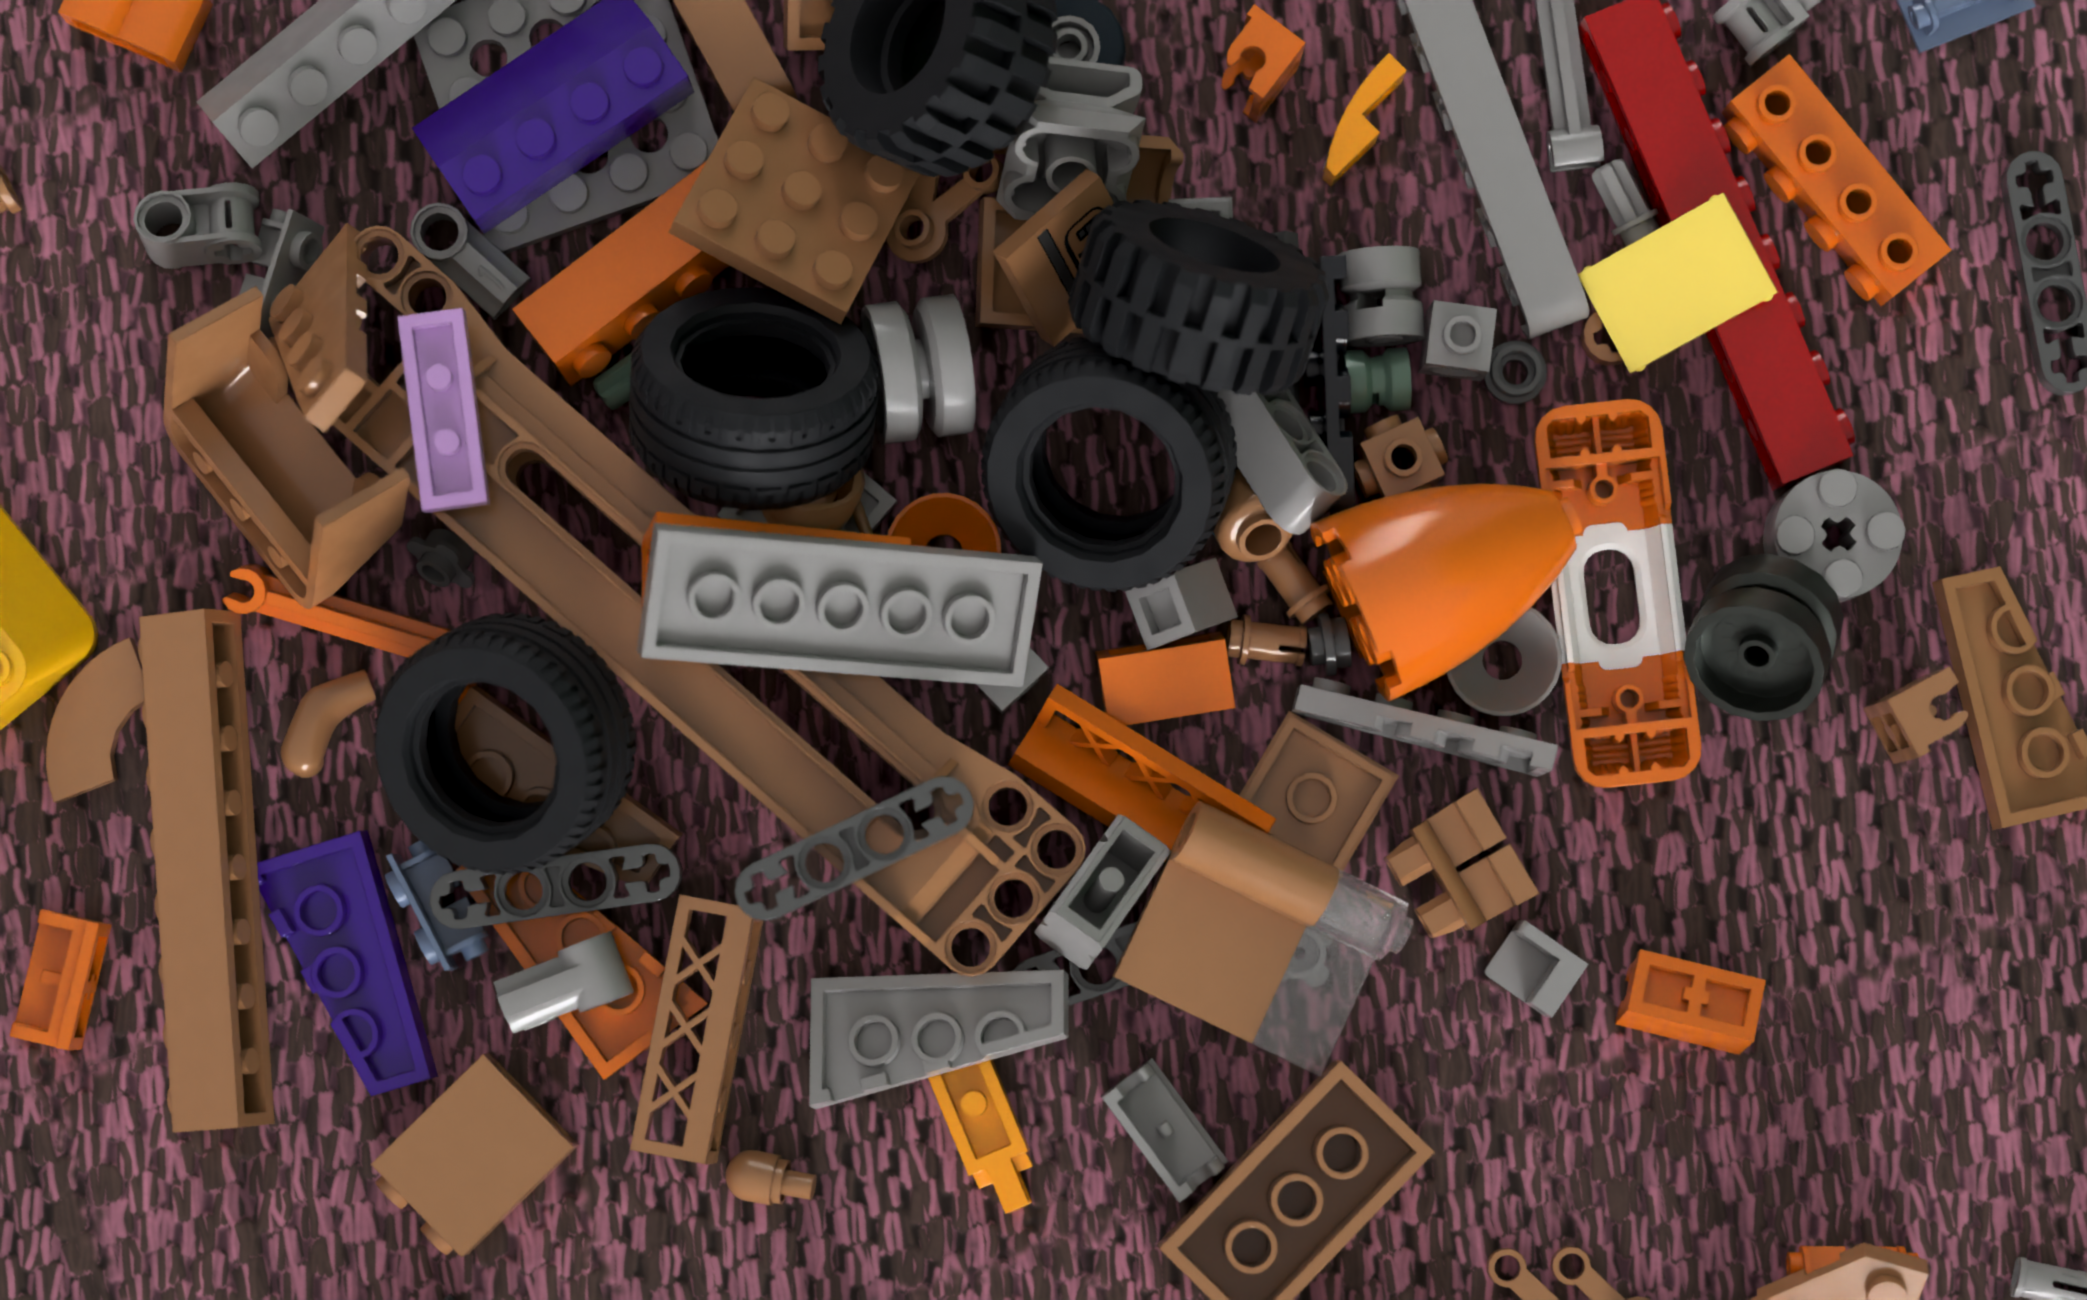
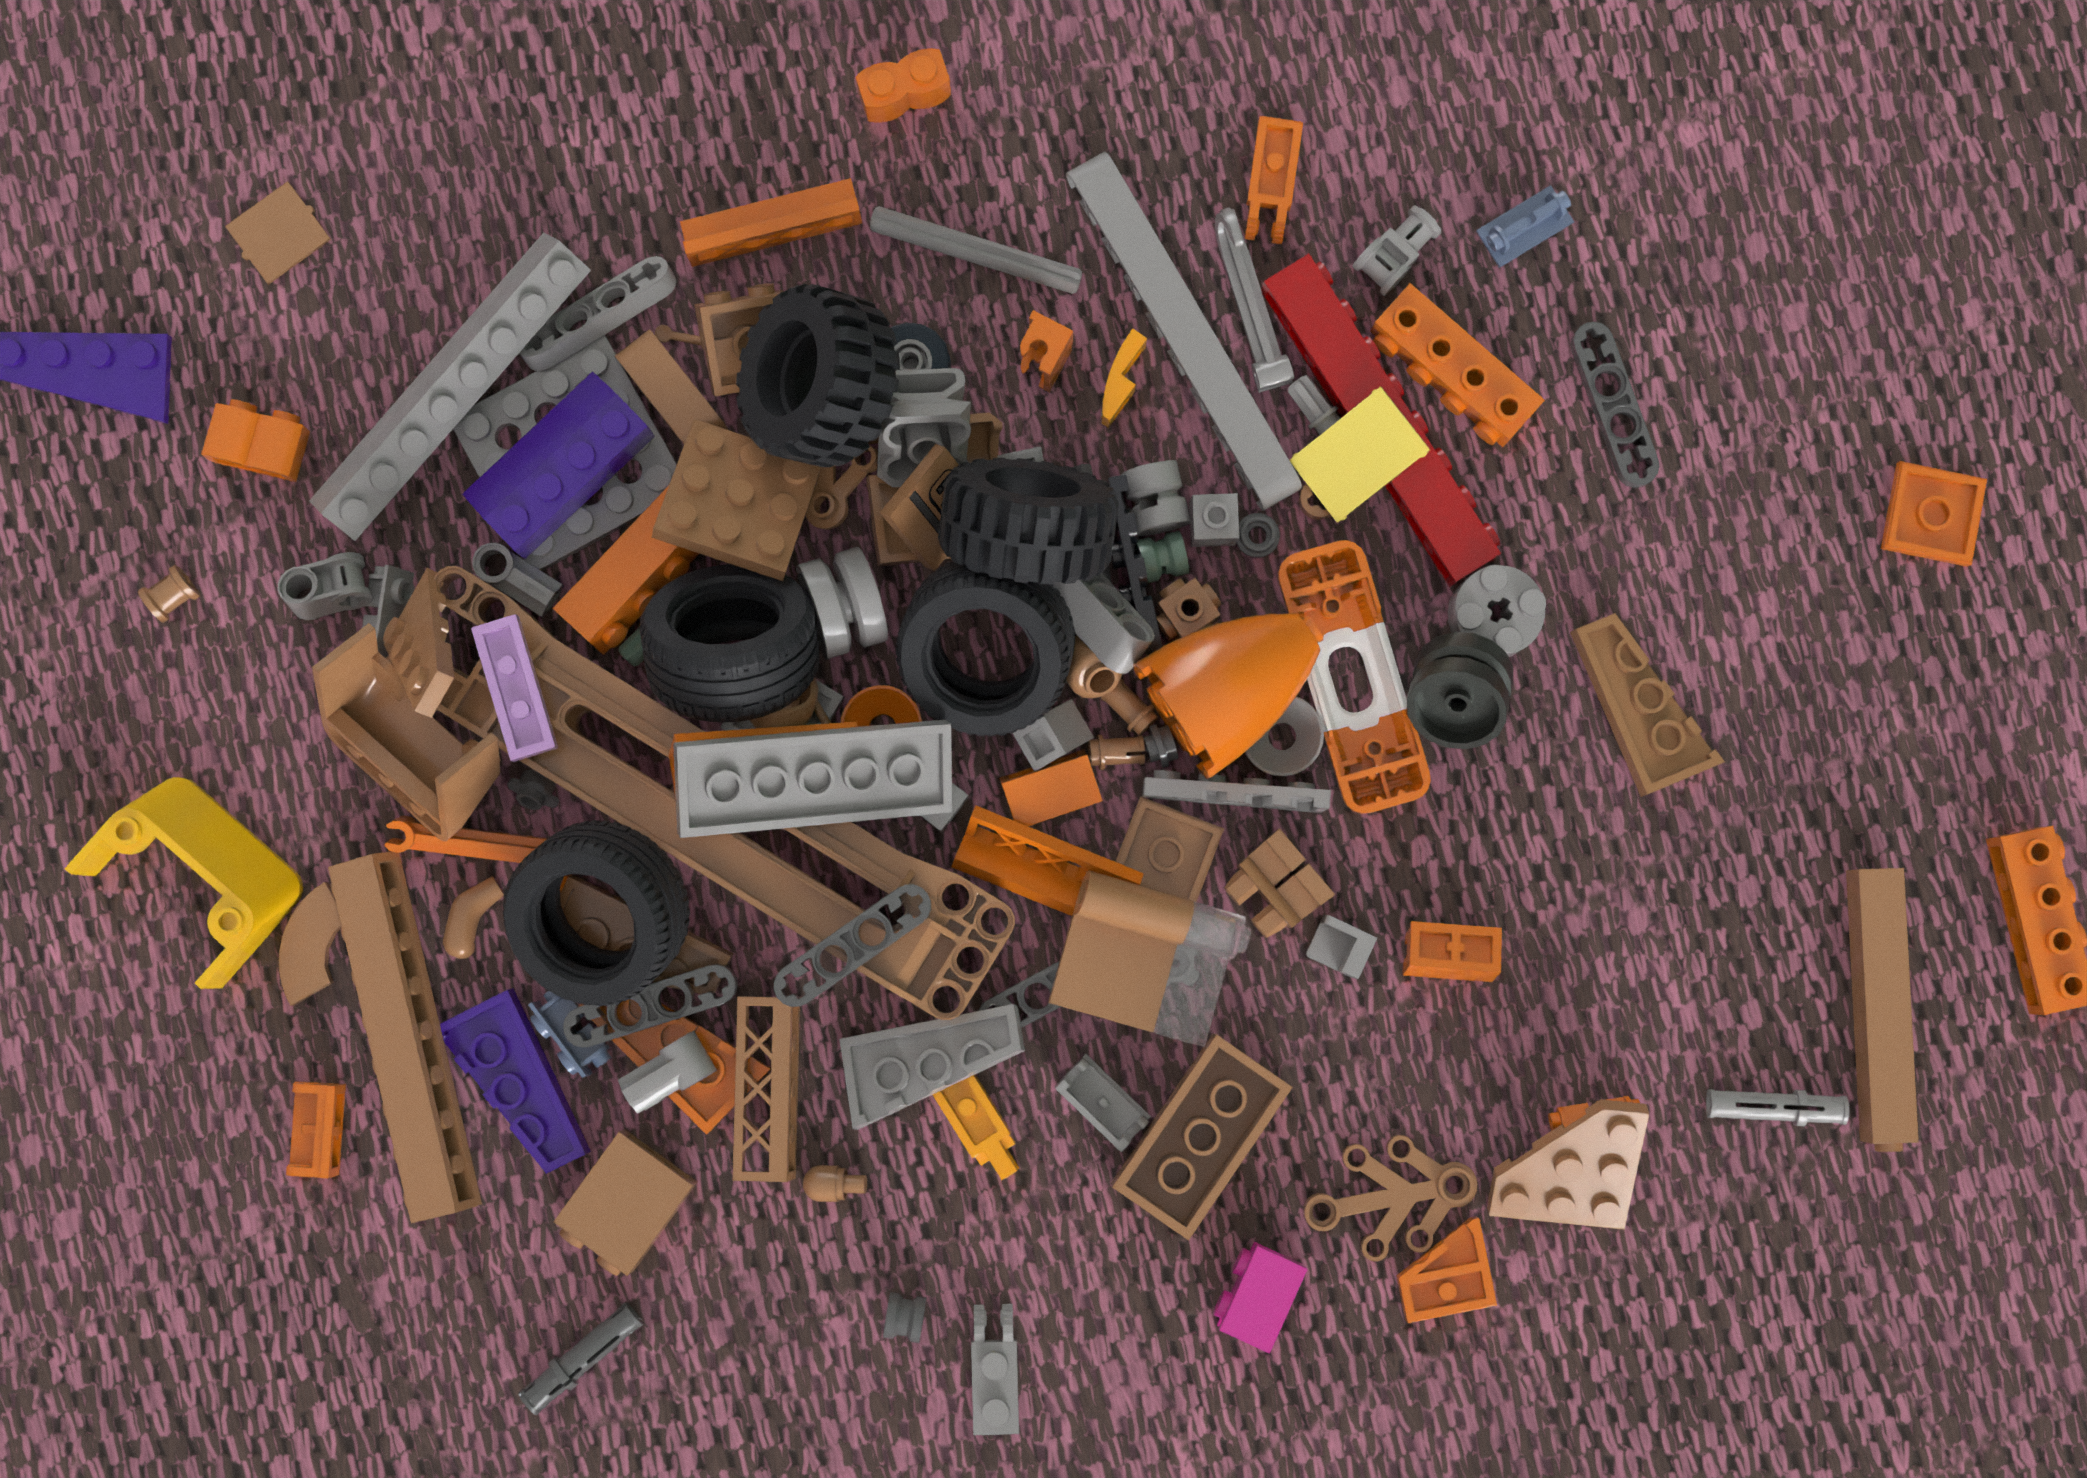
camera: 10 degrees left, 0 degrees up
(1102, 892) = (1031, 945): light grey brick -> none
(1907, 719) = (1568, 728): medium nougat hinge -> none

